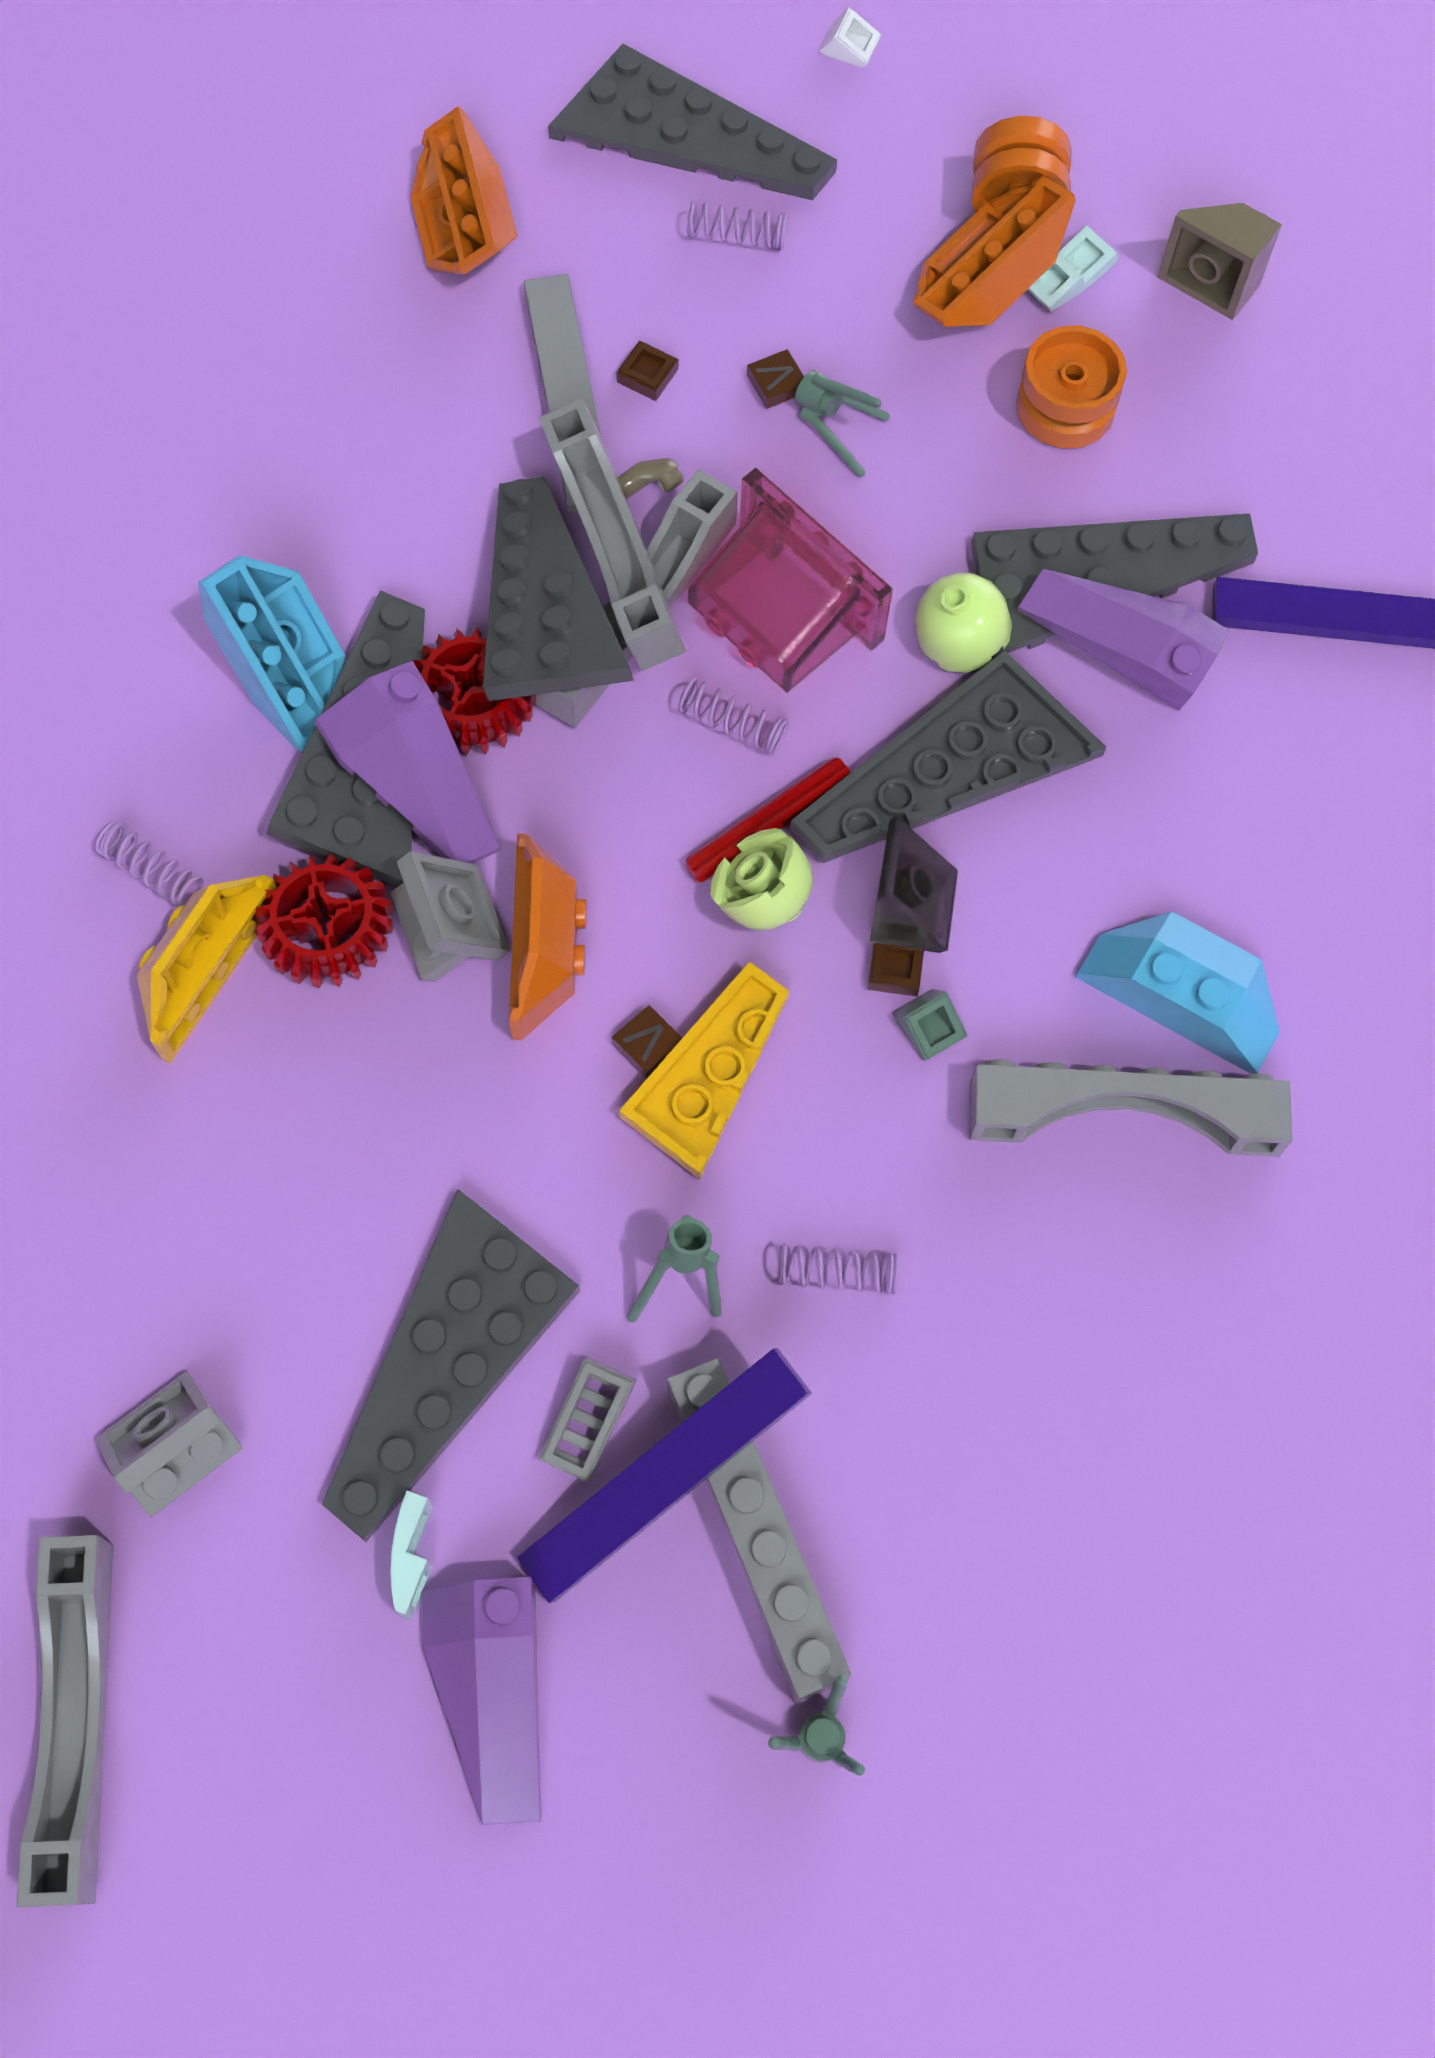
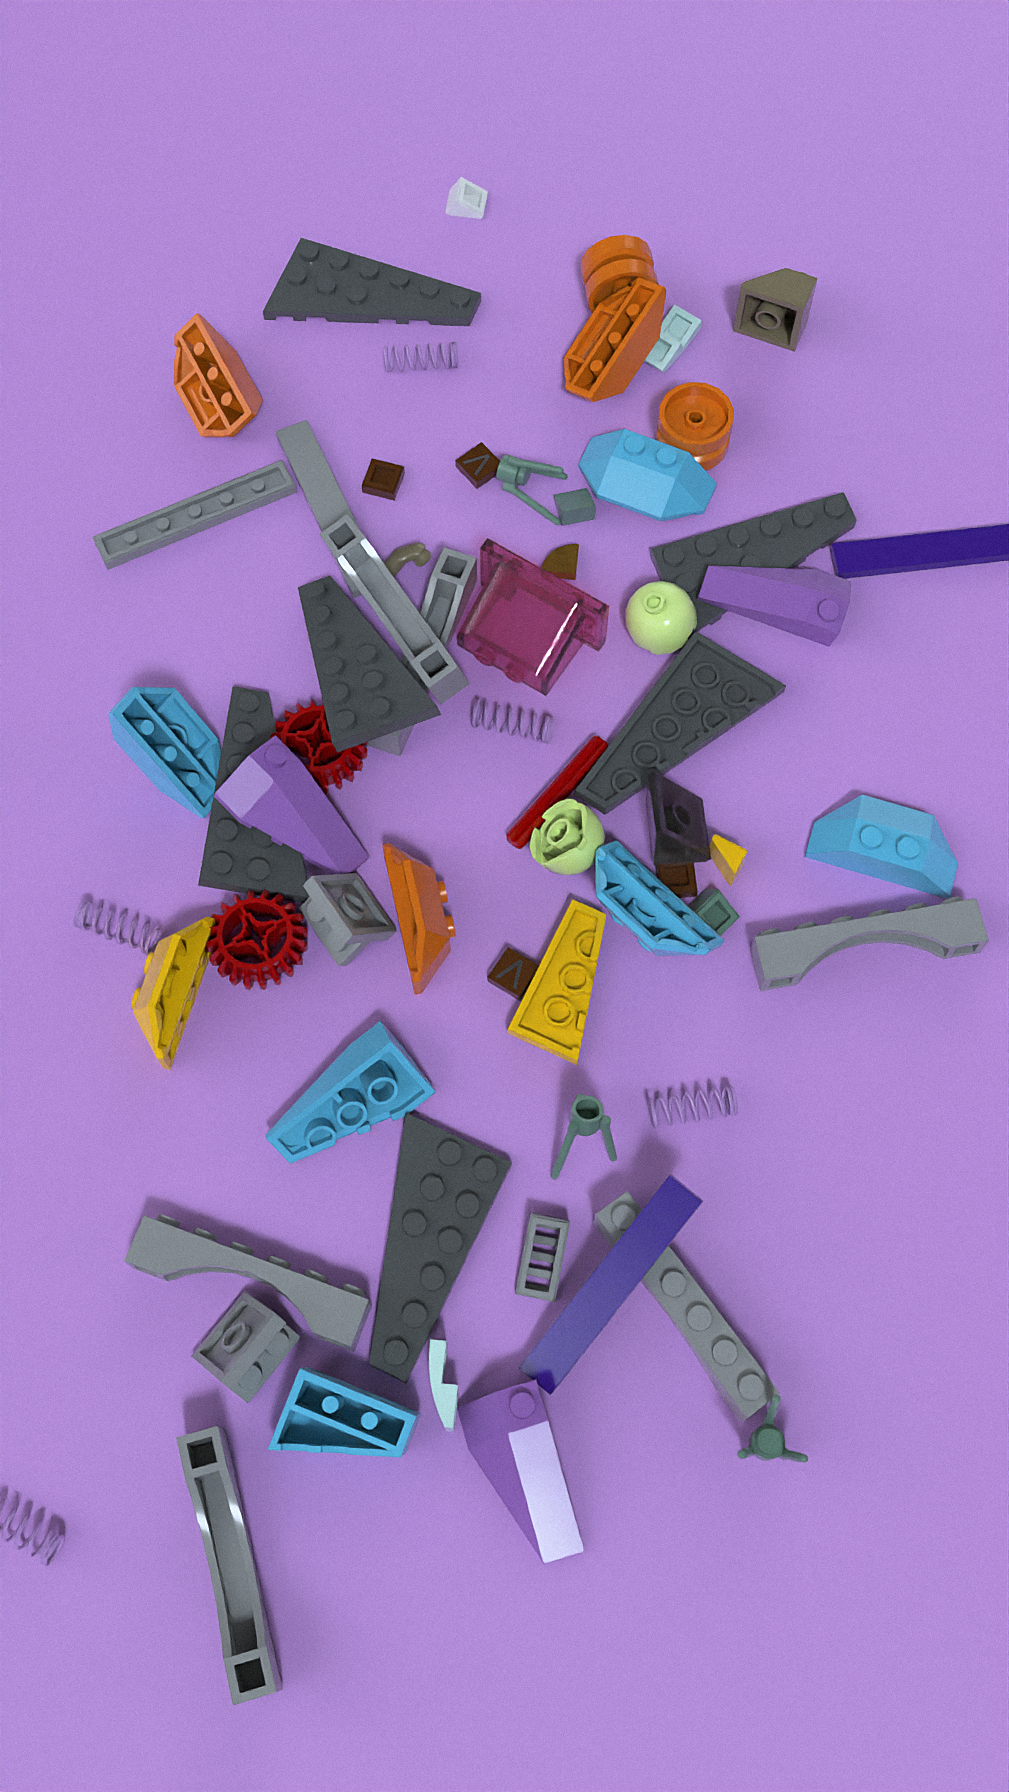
camera: 10 degrees left, 0 degrees up
(108, 1300) = (173, 1253): none -> light grey arch
(265, 1566) = (342, 1418): none -> medium azure wedge
(393, 364) = (194, 514): none -> light grey tile
(402, 1146) = (359, 1089): none -> medium azure wedge
(846, 992) = (649, 907): none -> medium azure wedge
(854, 525) = (563, 562): none -> pearl gold tile
(888, 458) = (575, 506): none -> sand green slope
(970, 953) = (727, 857): none -> yellow slope
(993, 437) = (646, 476): none -> medium azure wedge

